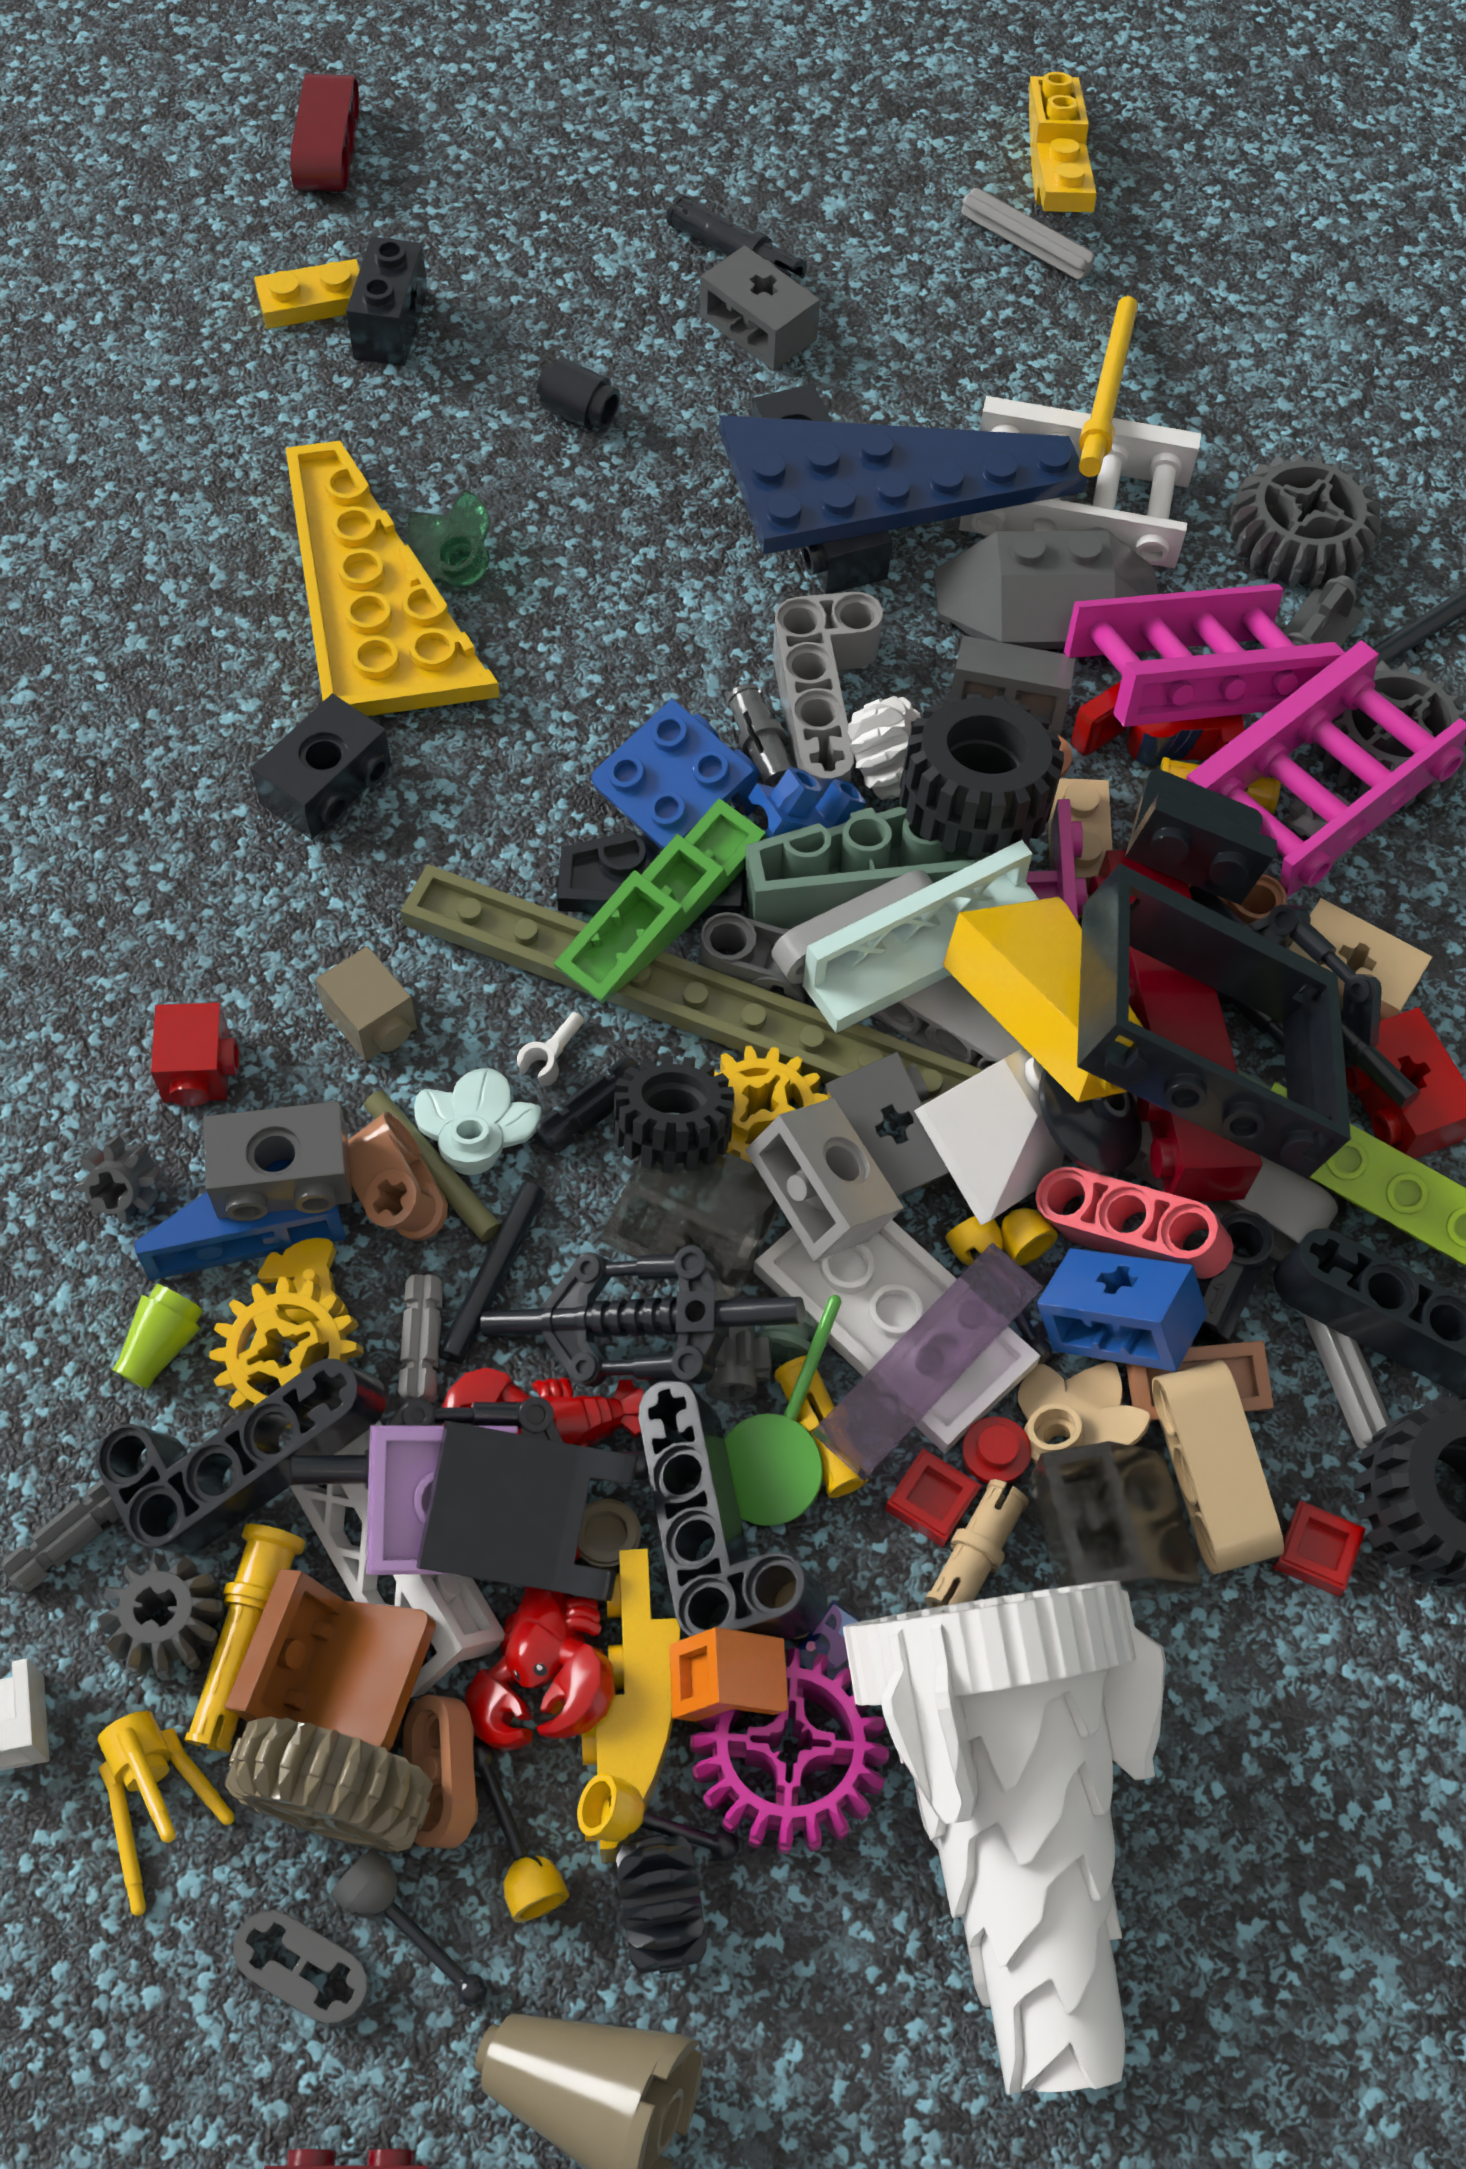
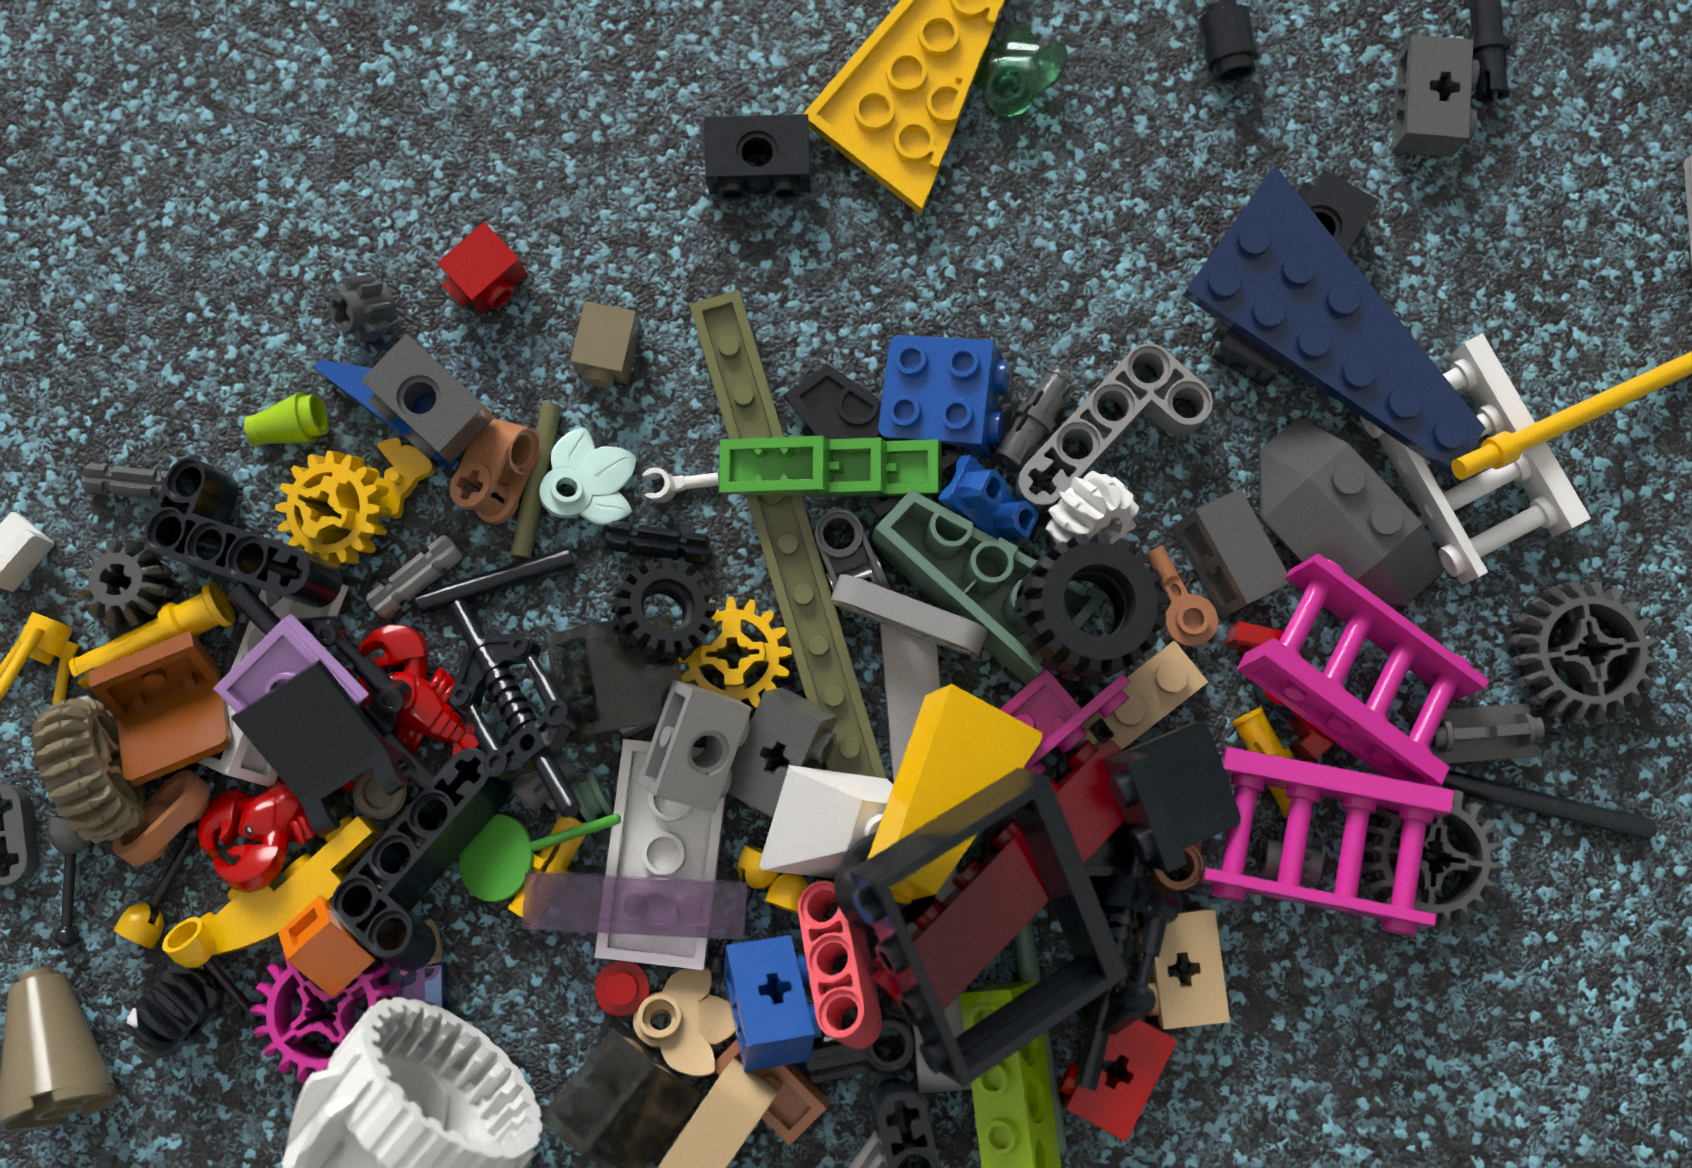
camera: 55 degrees right, 20 degrees up
(906, 942) = (928, 663): light aqua fence -> none
(933, 1497) = (563, 971): red tile -> none
(979, 1546) = (546, 1025): tan pin -> none

